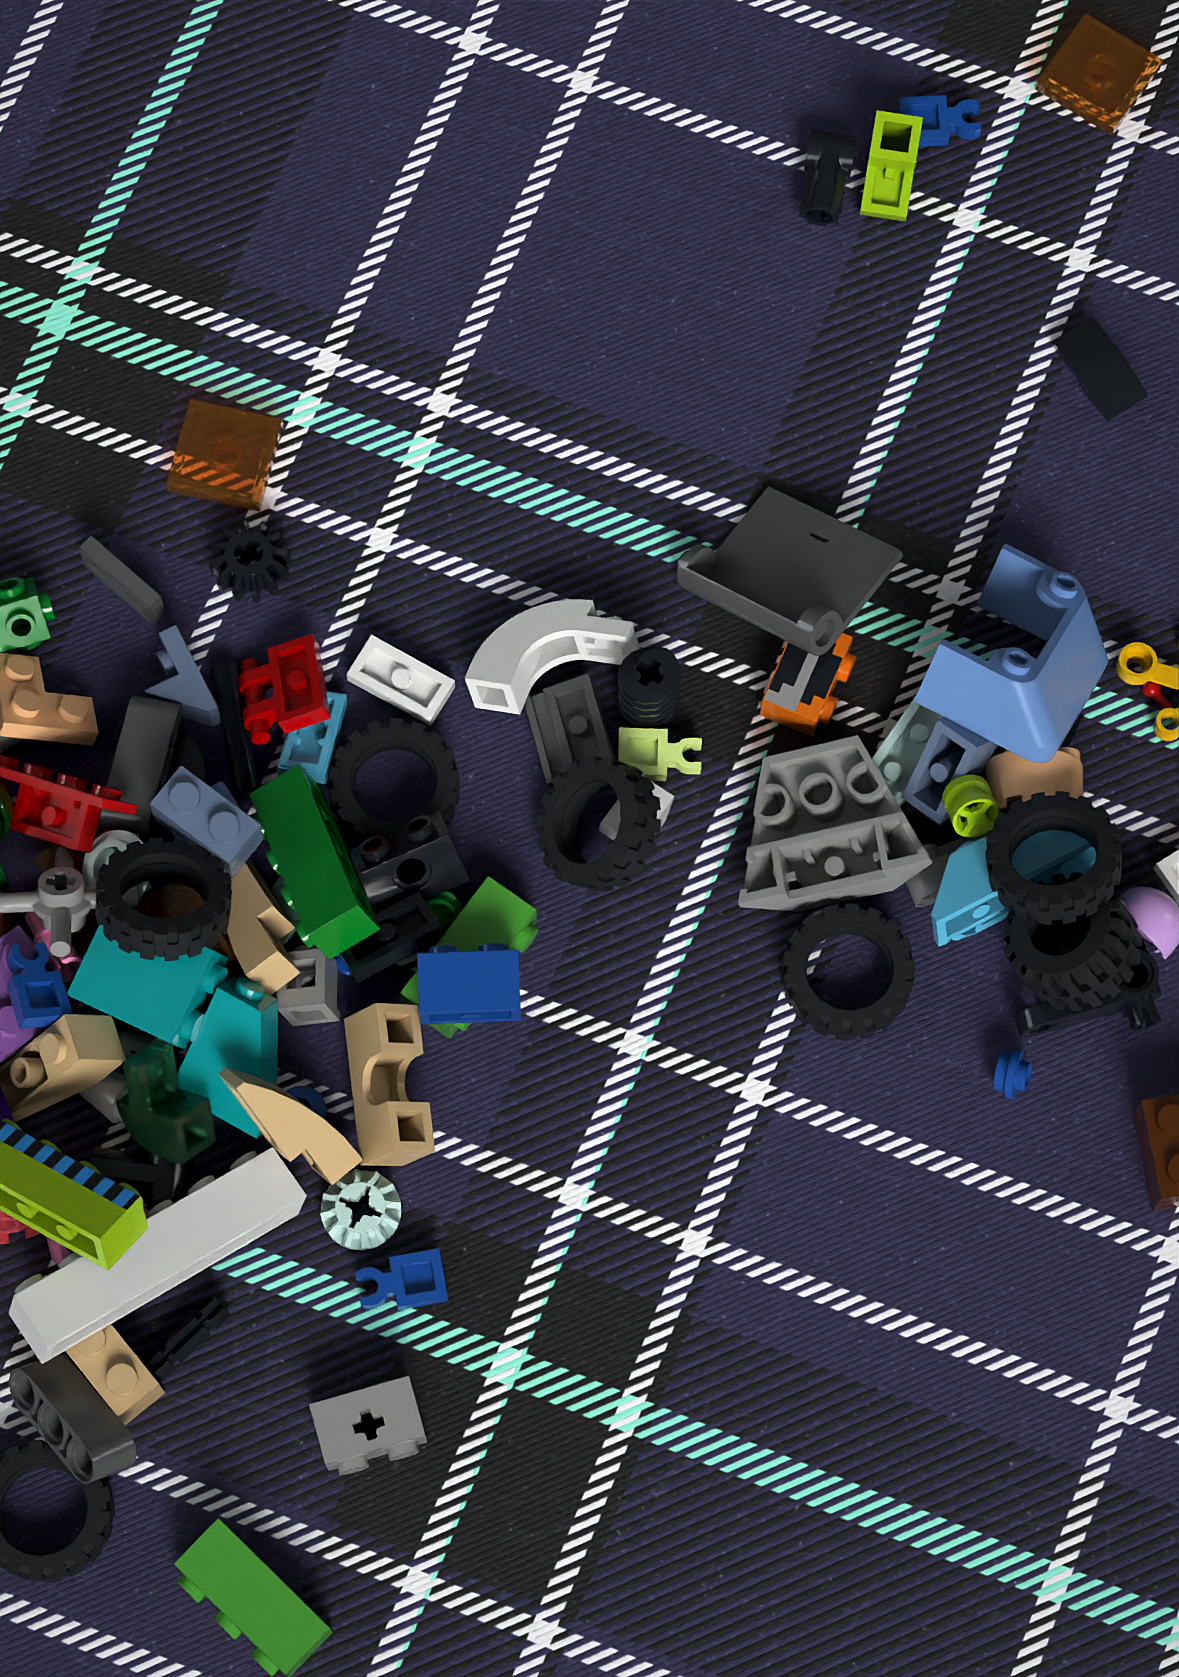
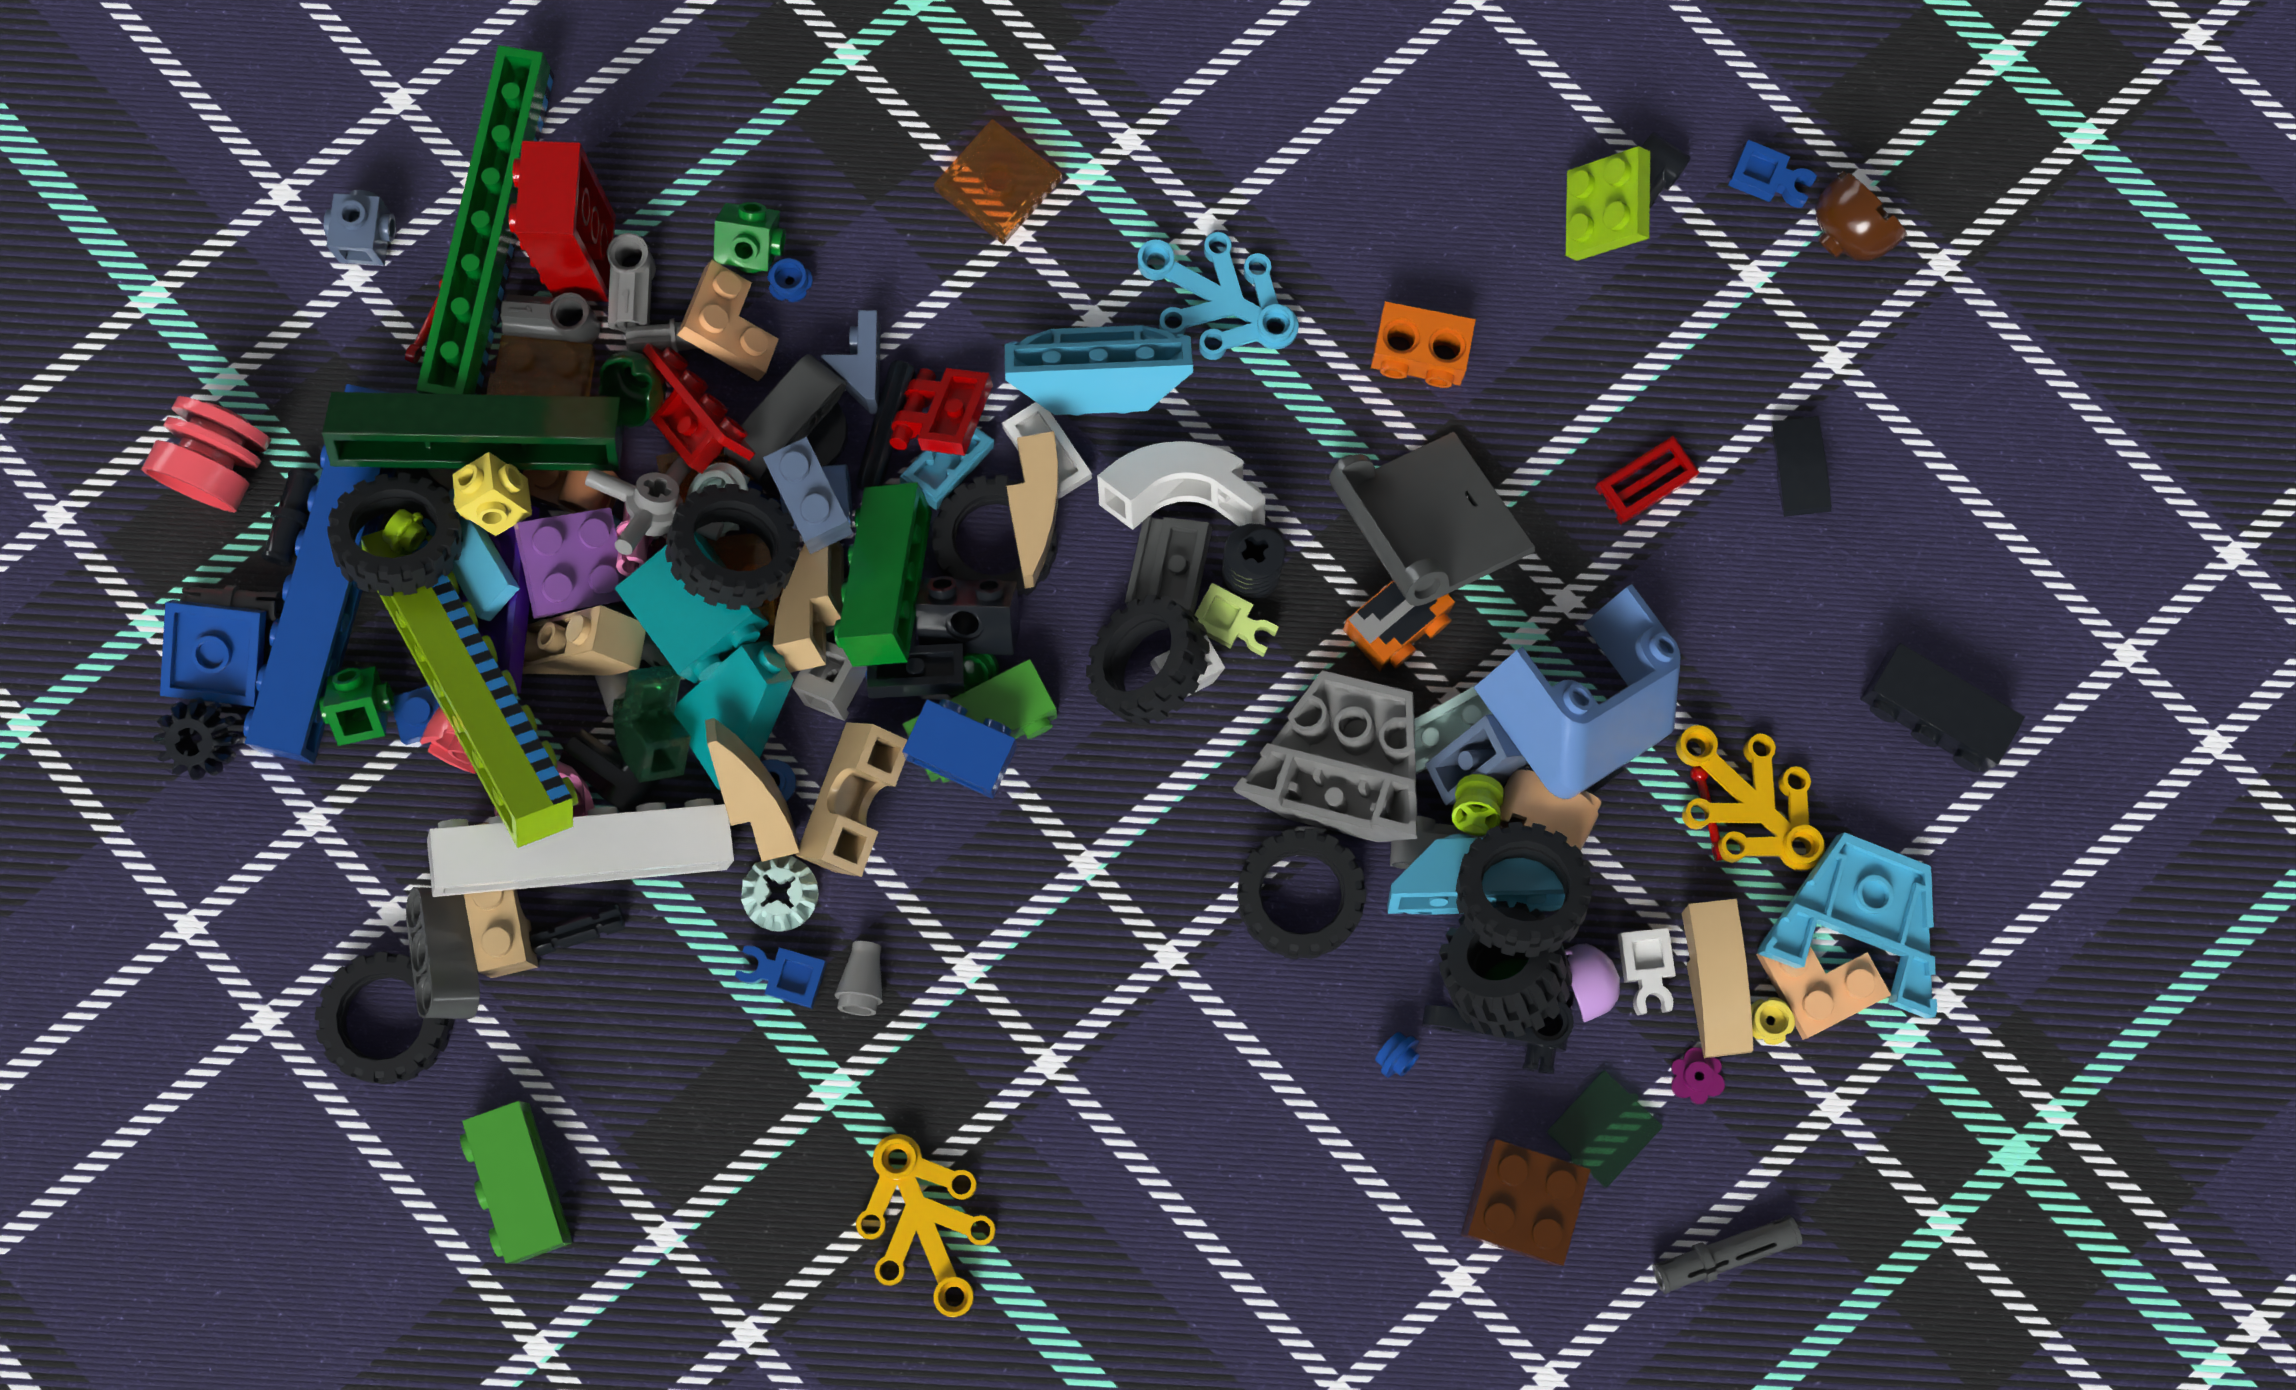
camera: 25 degrees right, 5 degrees up
(35, 994) = (588, 575): blue plate -> none
(73, 626) = (787, 269): none -> blue plate
(122, 580) = (854, 249): dark grey tile -> none
(242, 548) = (970, 300): black gear -> none
(342, 1415) = (664, 1066): light grey brick -> none
(413, 580) = (1098, 368): none -> medium azure wedge
(418, 729) = (1035, 502): none -> tan slope
(482, 1253) = (861, 981): none -> light grey cone
(493, 464) = (1222, 299): none -> medium azure plant
(650, 1440) = (920, 1217): none -> yellow plant
(694, 408) = (1423, 331): none -> orange brick
(804, 213) = (1608, 203): none -> lime plate
(891, 165) = (1707, 197): lime brick -> none
(949, 479) = (1615, 500): none -> red tile
(1035, 125) = (1855, 221): none -> reddish brown cylinder
(1098, 74) = (1938, 200): clear orange plate -> none

